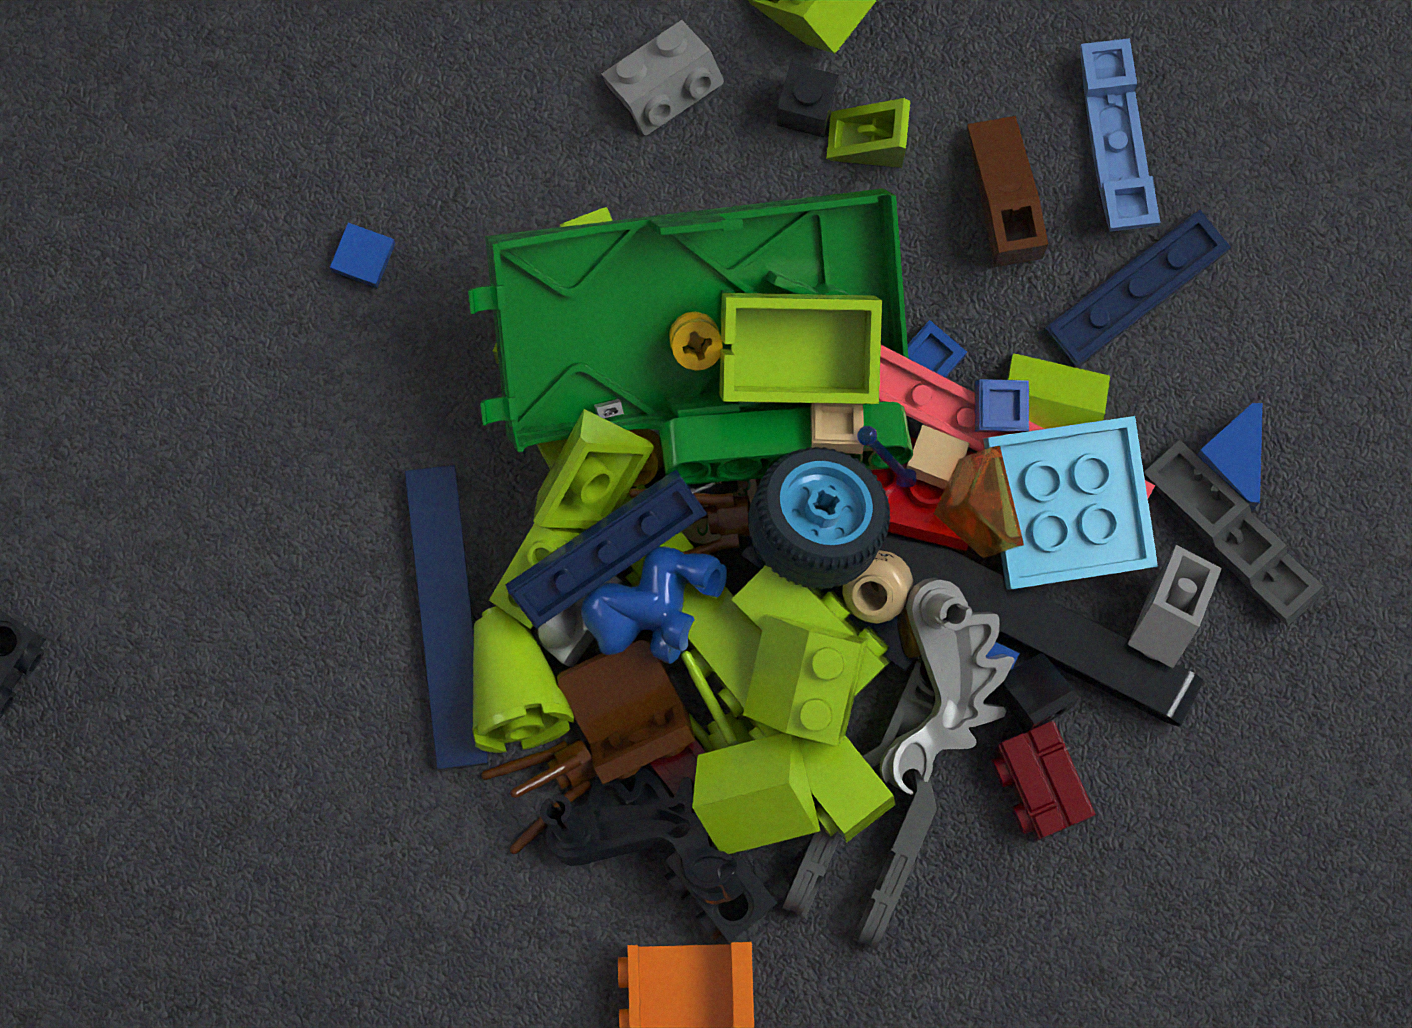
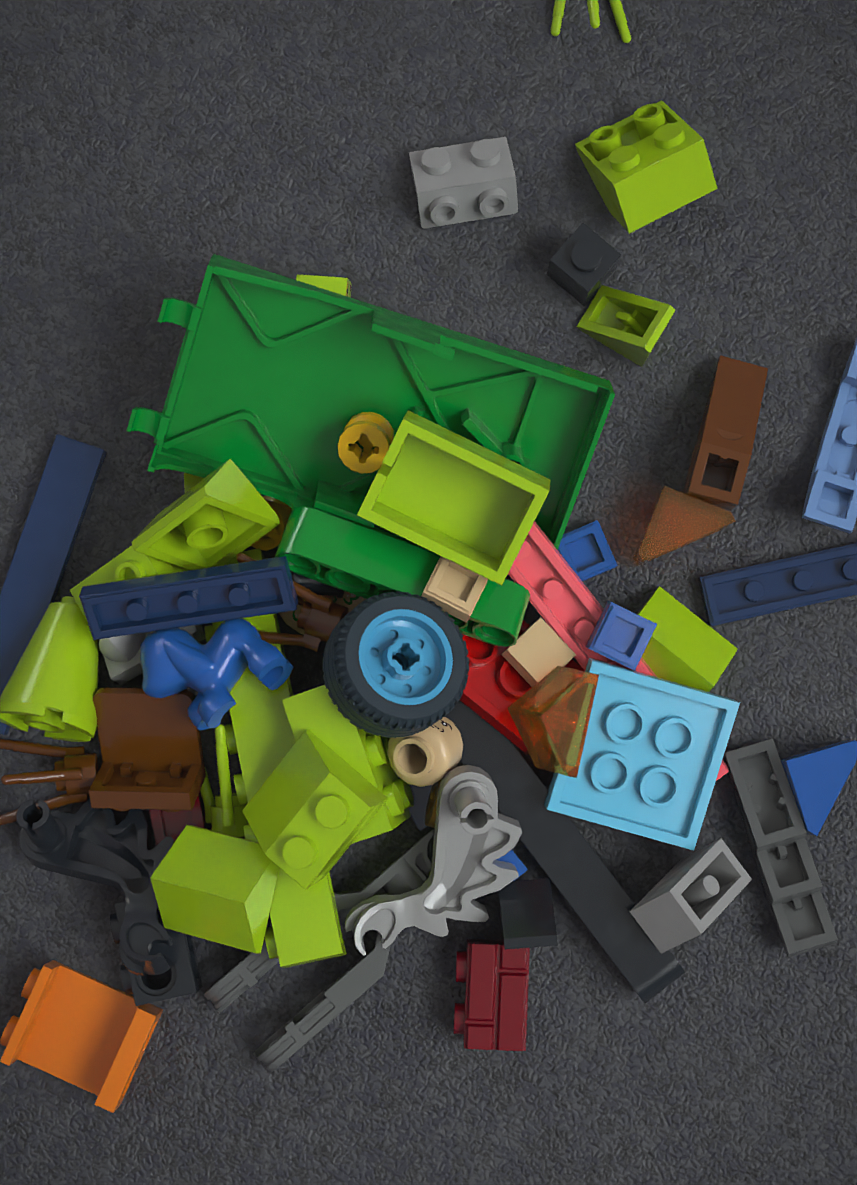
camera: 25 degrees right, 5 degrees up
(362, 255) = (114, 218): blue tile -> none
(609, 409) = (258, 467): light grey piece -> none
(904, 477) = (477, 611): clear blue hinge -> none
(1002, 287) = (678, 522): none -> clear orange slope

